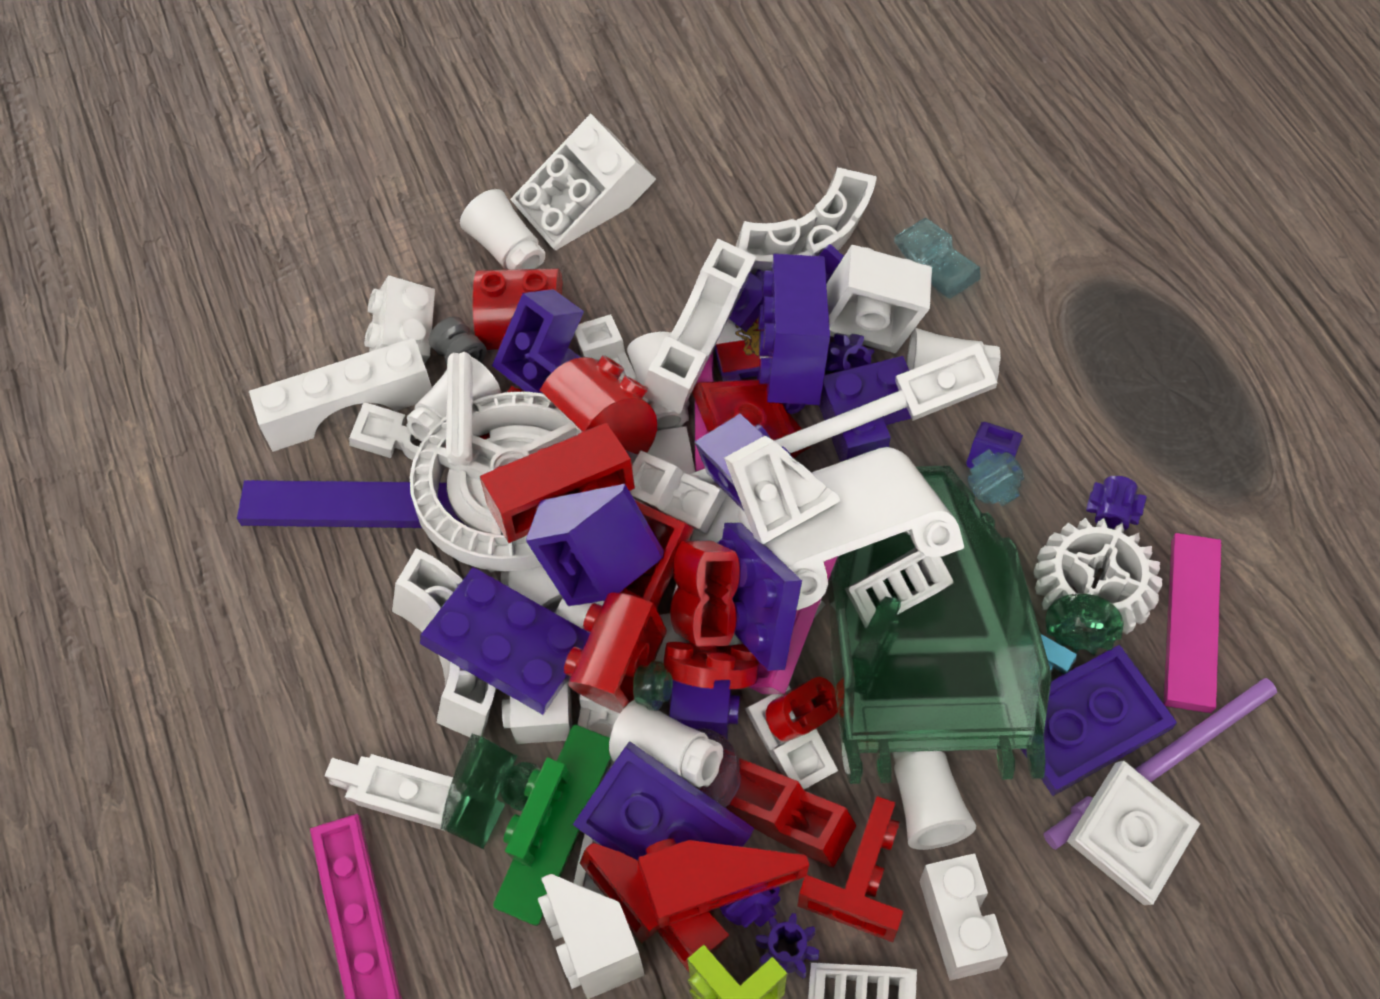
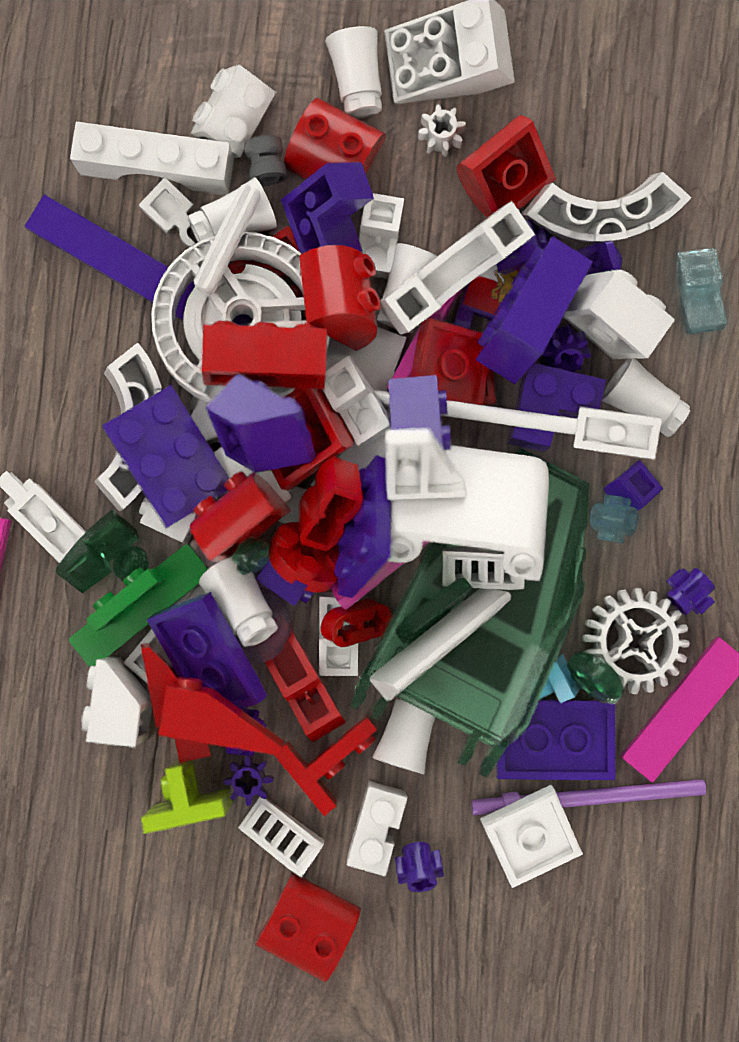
camera: 20 degrees right, 25 degrees up
(612, 244) = (437, 121): none -> white gear
(688, 237) = (506, 168): none -> red brick
(902, 674) = (438, 641): none -> white slope
(1037, 934) = (419, 867): none -> dark purple gear

